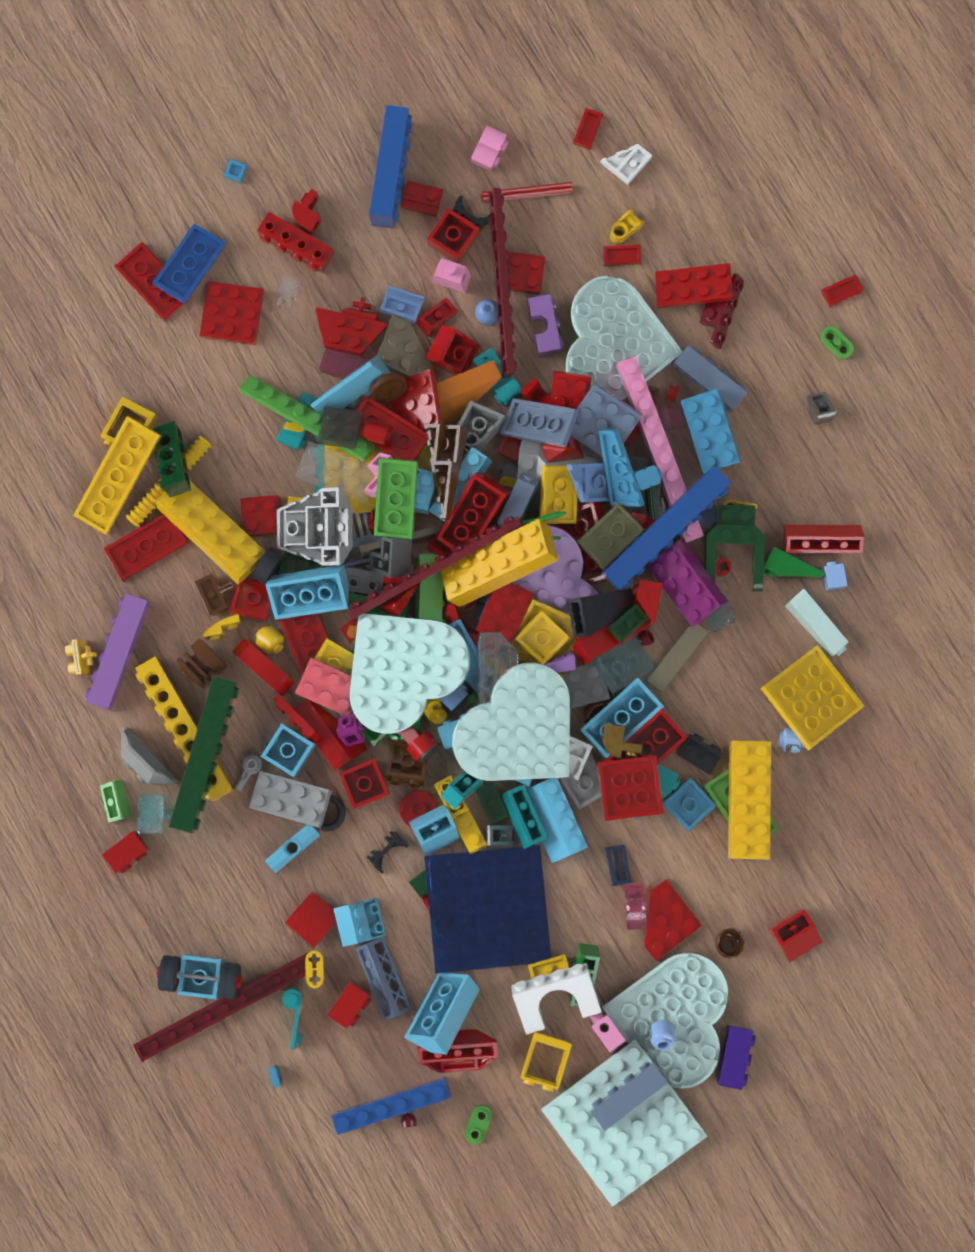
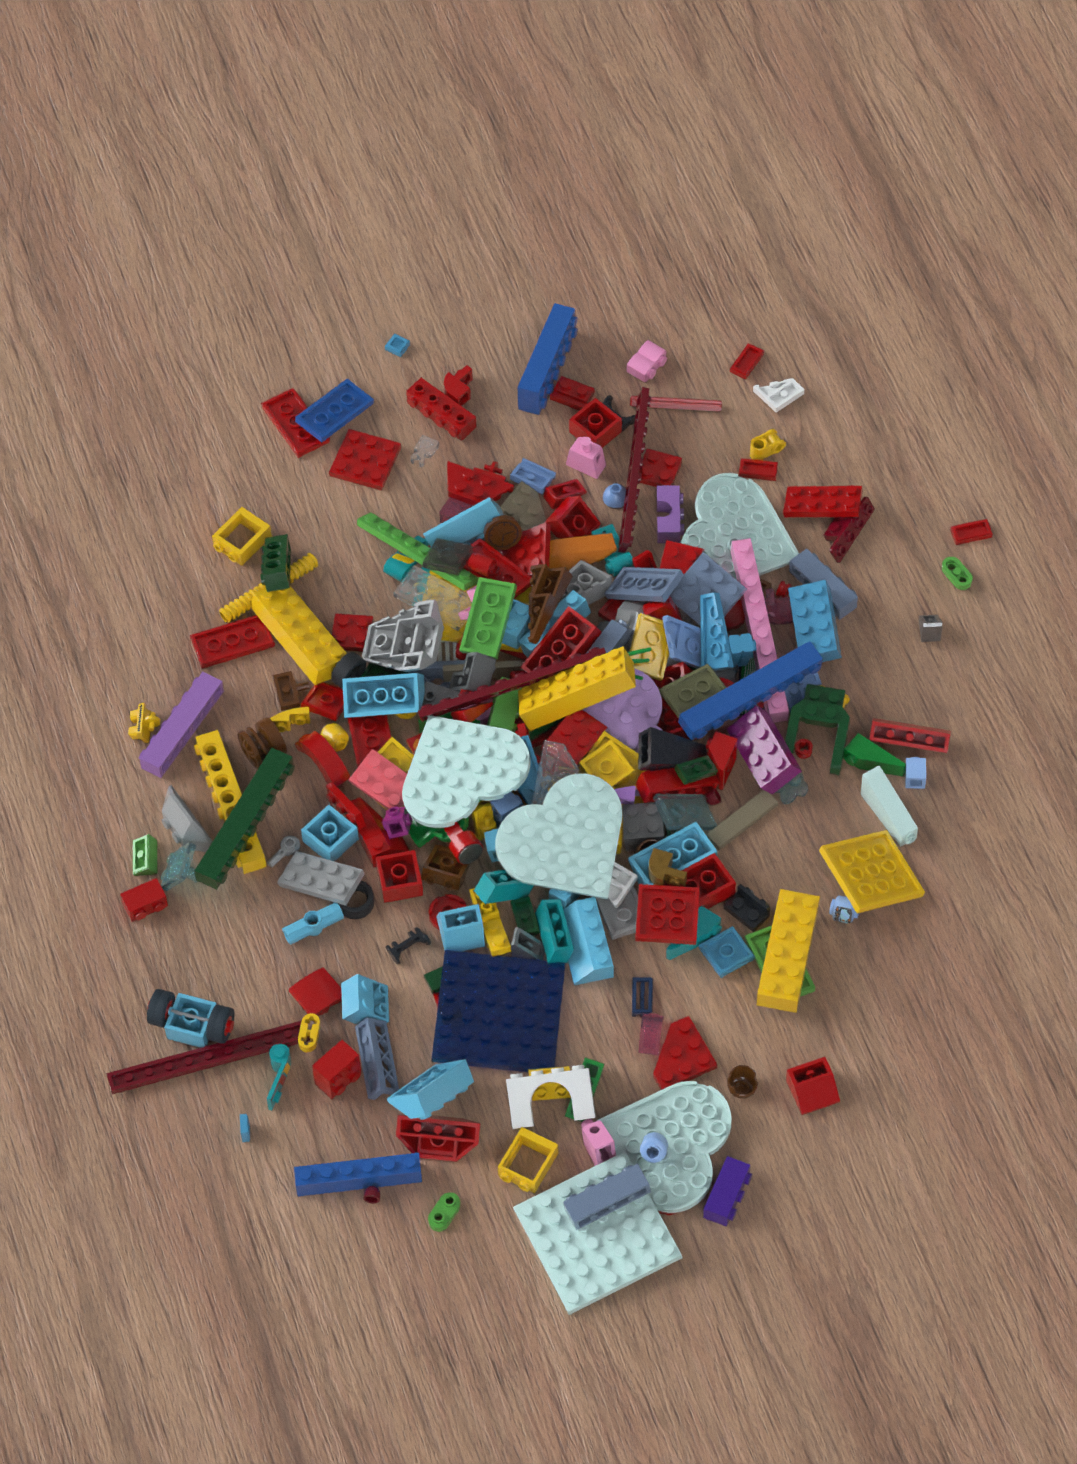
camera: 10 degrees right, 25 degrees down
(117, 475) = (220, 570): yellow plate -> none

